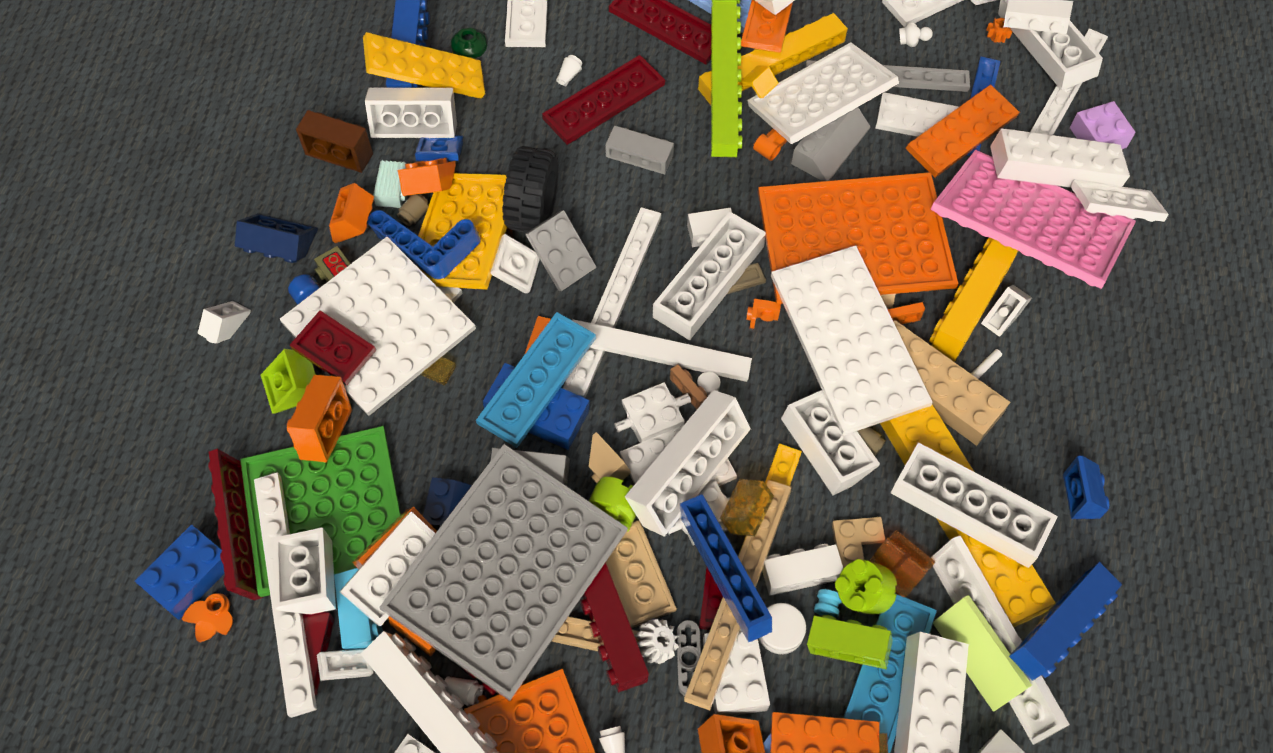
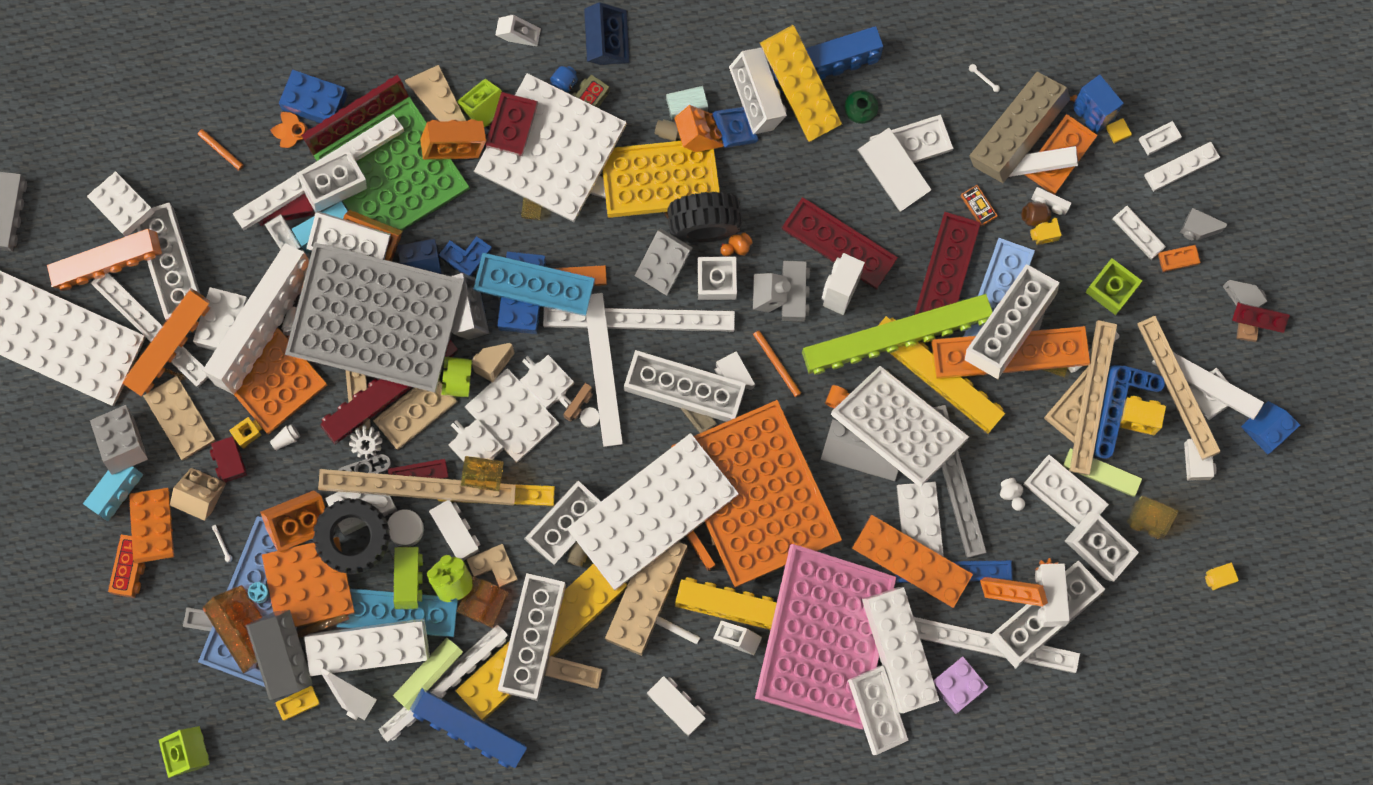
camera: 70 degrees right, 15 degrees up
(190, 715) = (220, 149): none -> orange bar
(252, 431) = (436, 94): none -> tan wing
(334, 141) = (709, 41): reddish brown brick -> none
(350, 213) = (641, 85): orange slope -> none
(436, 259) = (626, 148): blue beam -> none
(471, 455) = (467, 260): none -> blue plate
(515, 264) = (640, 229): white plate -> none
(548, 29) = (894, 169): none -> white tile
(568, 183) = (738, 243): none -> orange animal
(570, 68) = (860, 202): white cone -> none
(599, 210) = (717, 278): none -> white brick
(633, 164) = (769, 291): none -> light grey torso
(656, 89) = (842, 283): none -> white brick
(688, 462) = (502, 419): white brick -> none
(710, 190) = (776, 362): none -> orange bar
(726, 568) = (423, 468): blue brick -> none
(761, 80) = (897, 369): yellow panel -> none
(763, 309) = (665, 432): orange bracket -> none
(810, 661) = (332, 517): none -> black tyre
(827, 603) = (433, 555): medium azure wheel -> none
(1017, 477) = (573, 672): none -> tan tile
(1024, 46) = (1014, 591): none -> orange plate
(1073, 391) = (677, 705): none -> white brick
(1085, 489) = (588, 730): blue slope -> none

